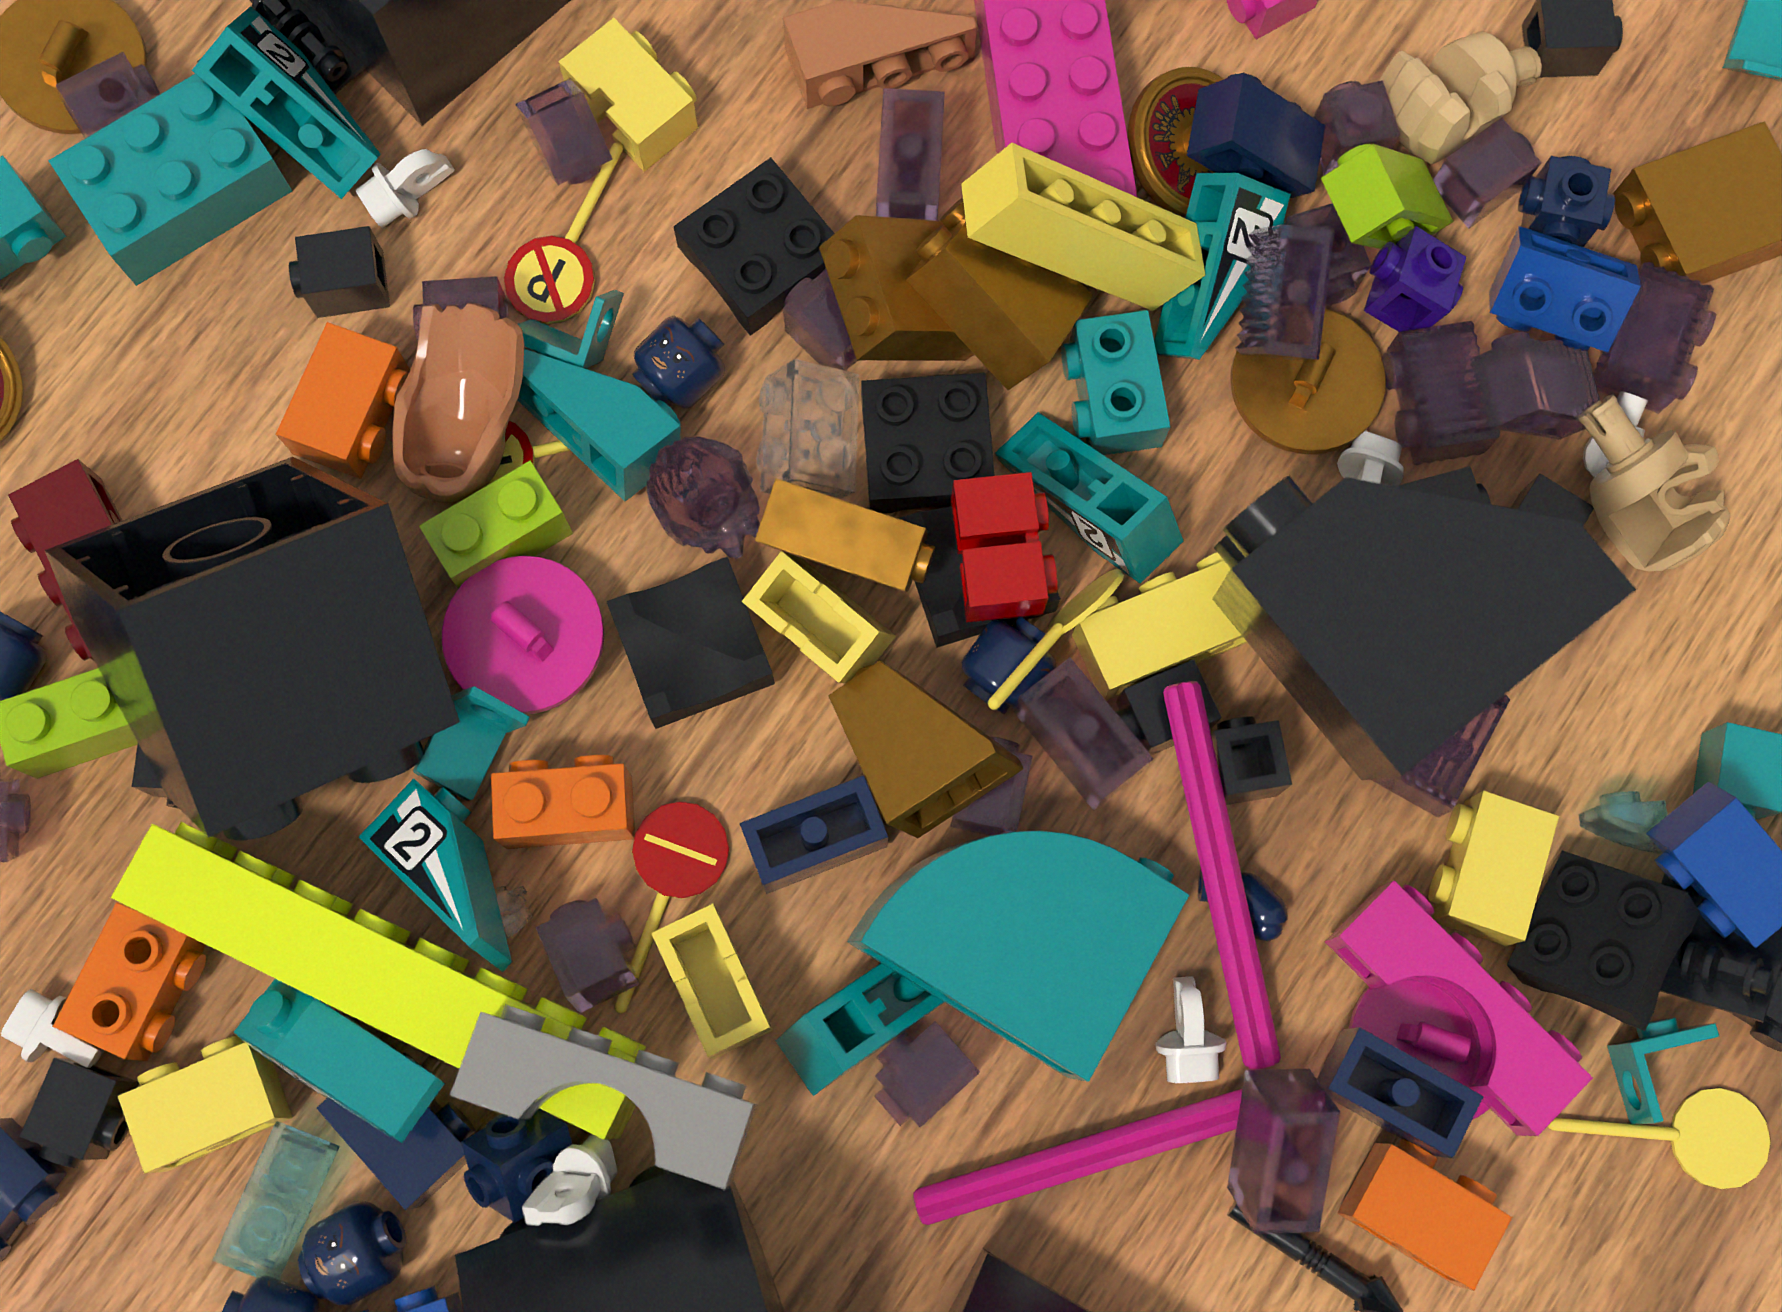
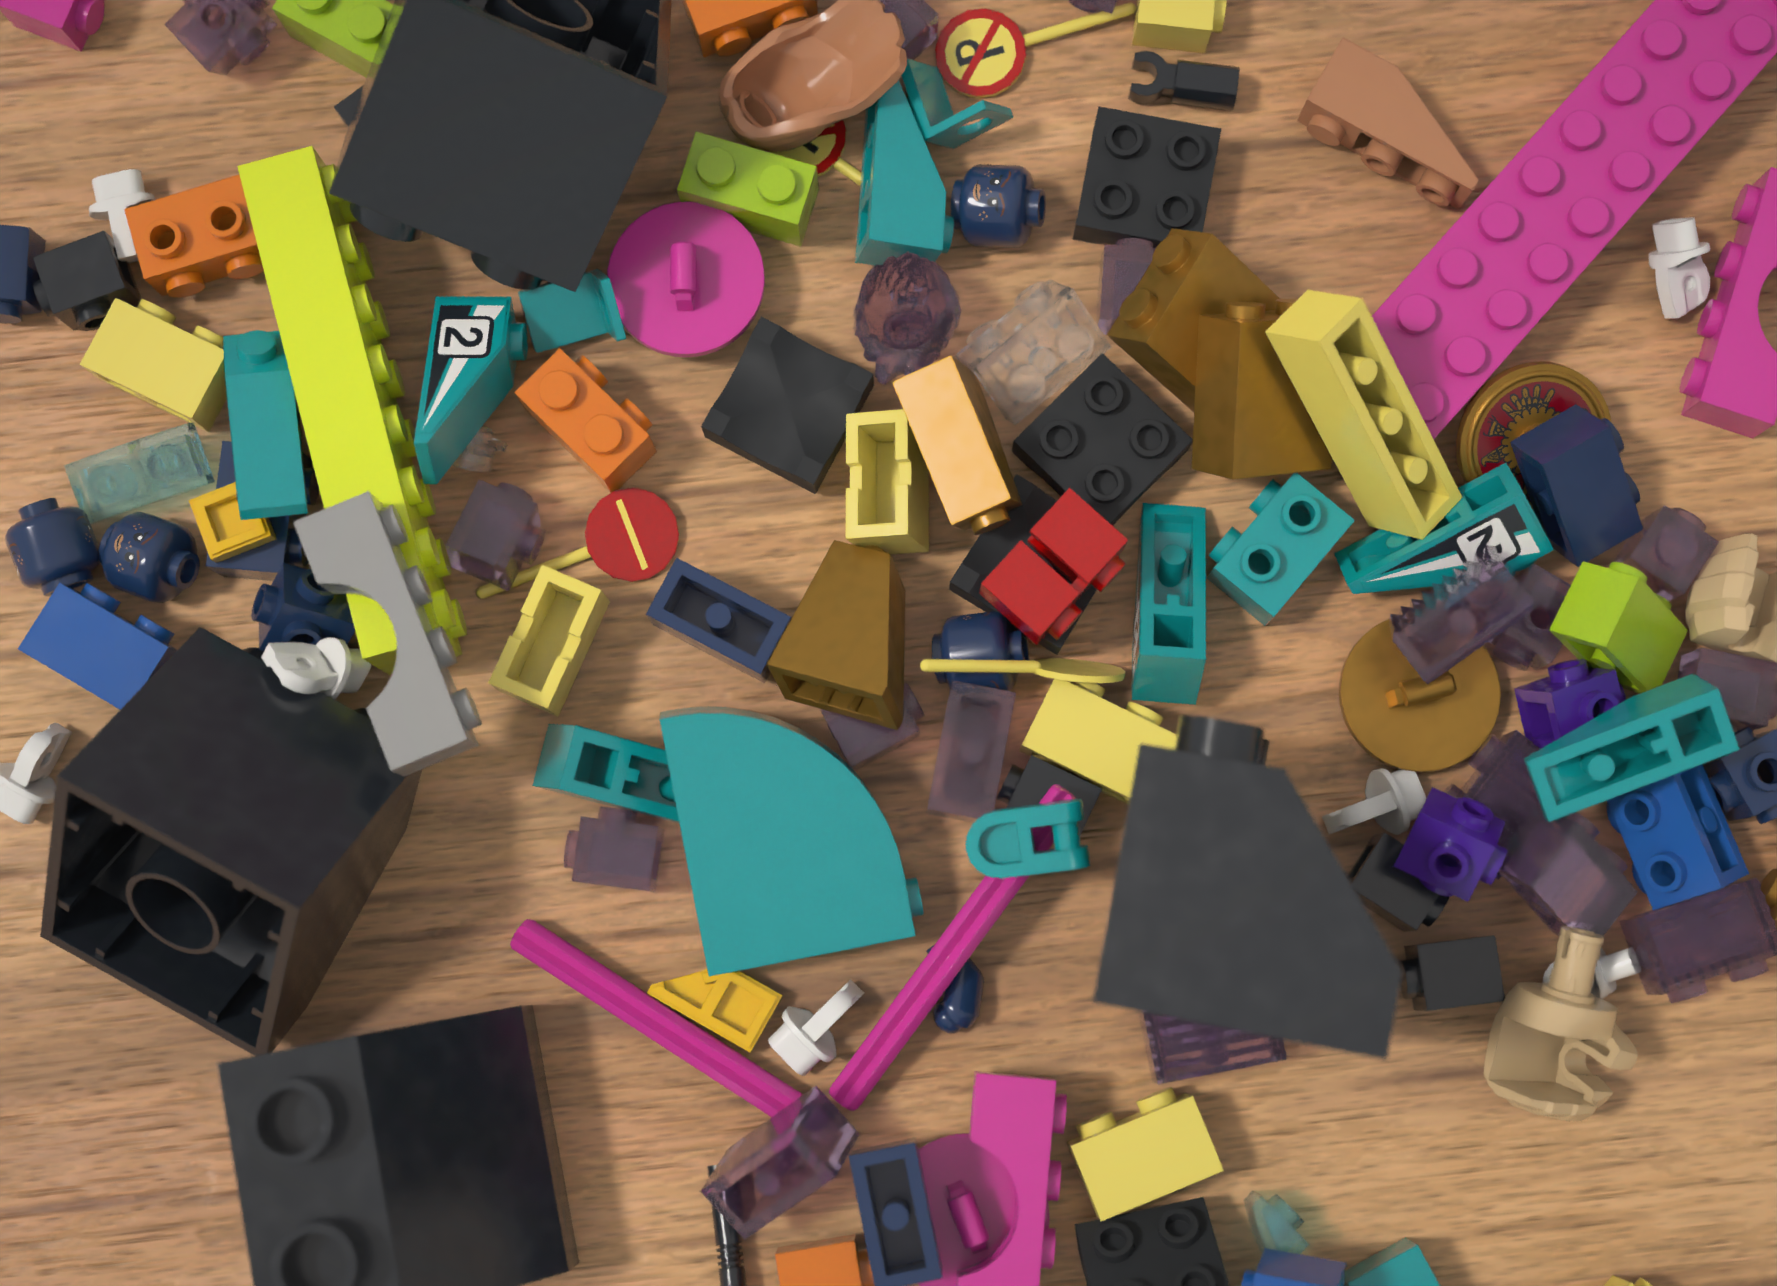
camera: 55 degrees right, 5 degrees up
(387, 1163) = (223, 529): none -> yellow tile
(709, 155) = (1185, 82): none -> black bar
(910, 154) = (1315, 234): brick -> none
(1117, 1091) = (724, 1003): none -> yellow tile
(1184, 761) = (1004, 845): none -> teal plate
(1251, 759) = (1059, 900): black brick -> none
(1456, 441) = (1453, 845): none -> dark purple brick
(1490, 253) = (1632, 746): none -> teal slope

